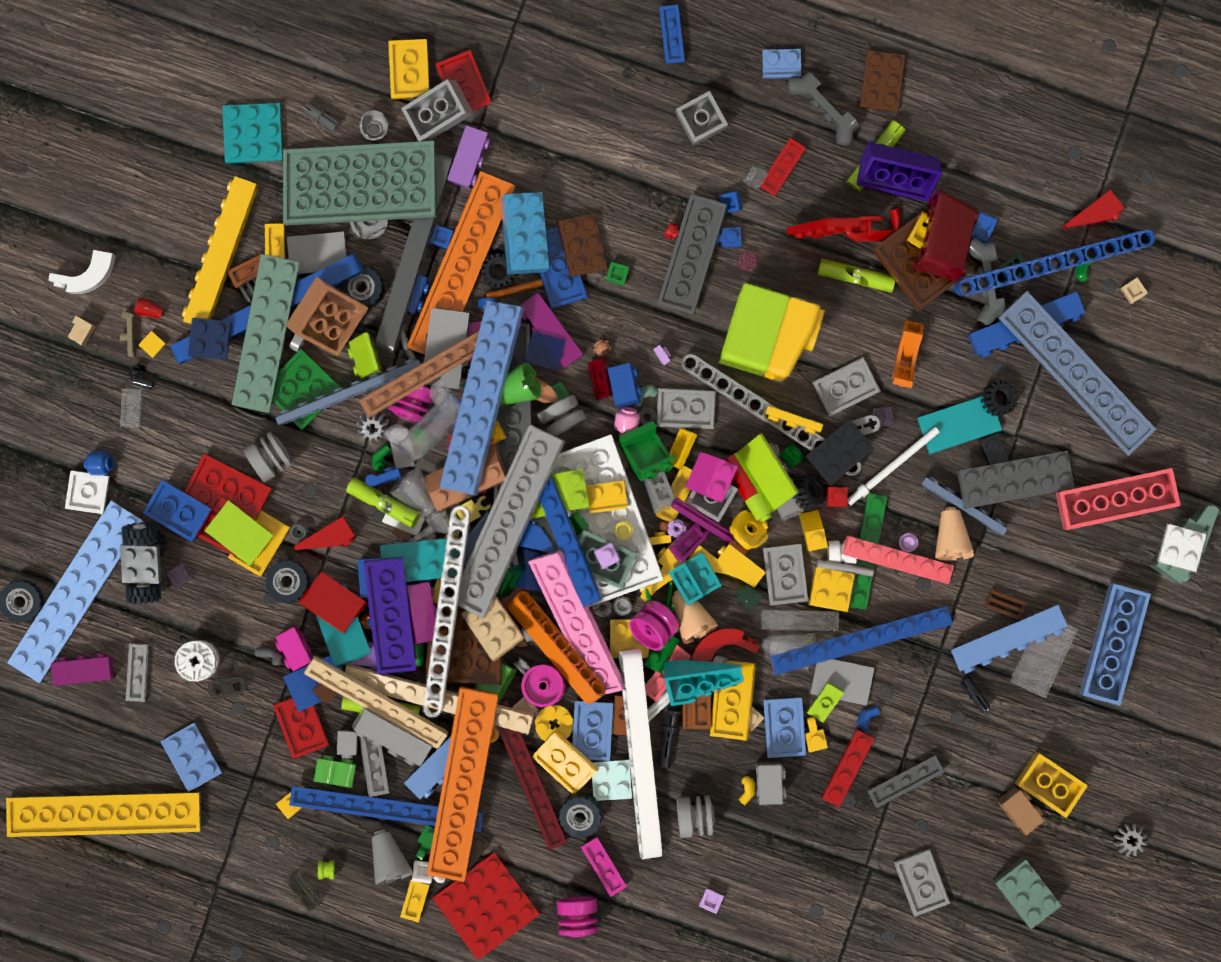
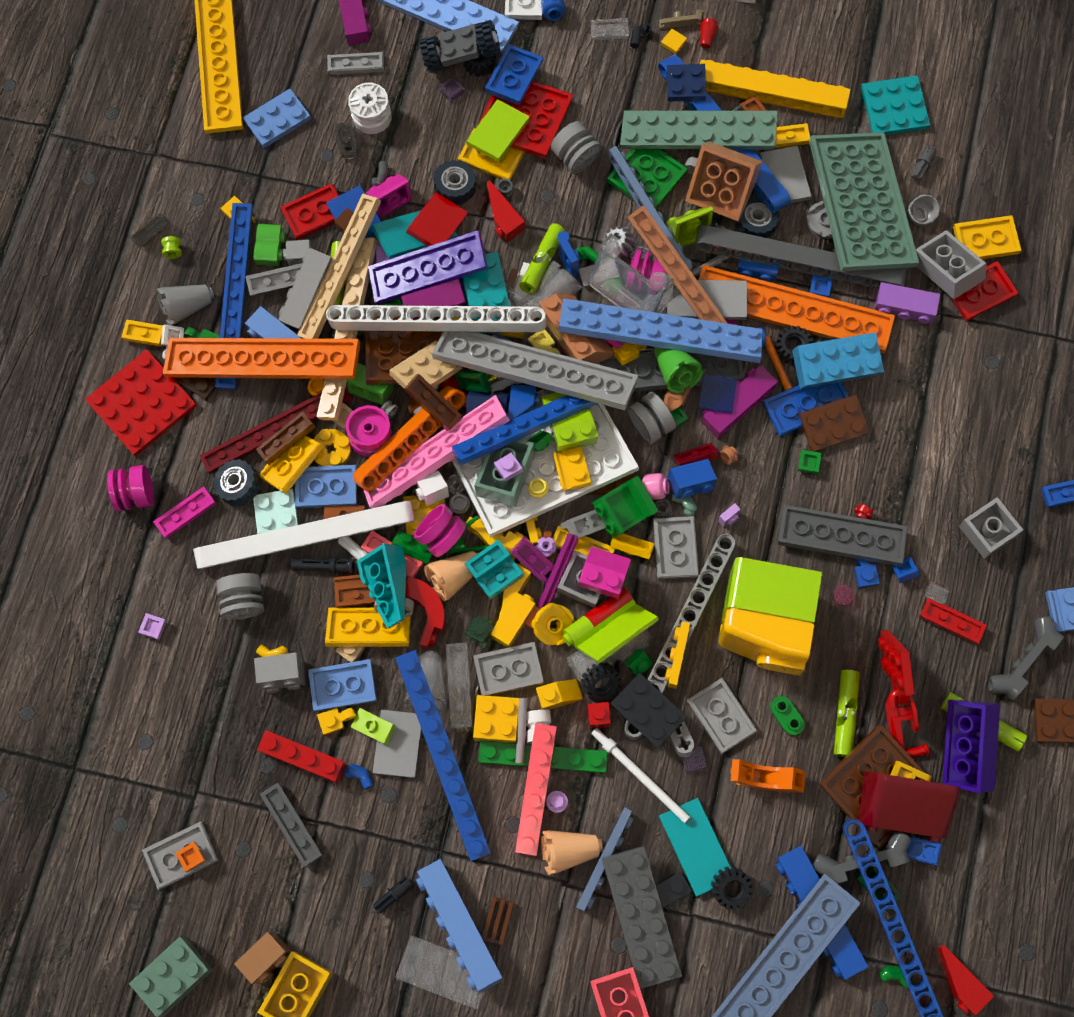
camera: 95 degrees right, 15 degrees down
(531, 621) = (432, 402): none -> reddish brown plate
(543, 765) = (285, 438): none -> reddish brown plate
(611, 629) = (432, 488): none -> white brick
(852, 328) = (787, 715): none -> green plate
(926, 872) = (190, 857): none -> orange plate

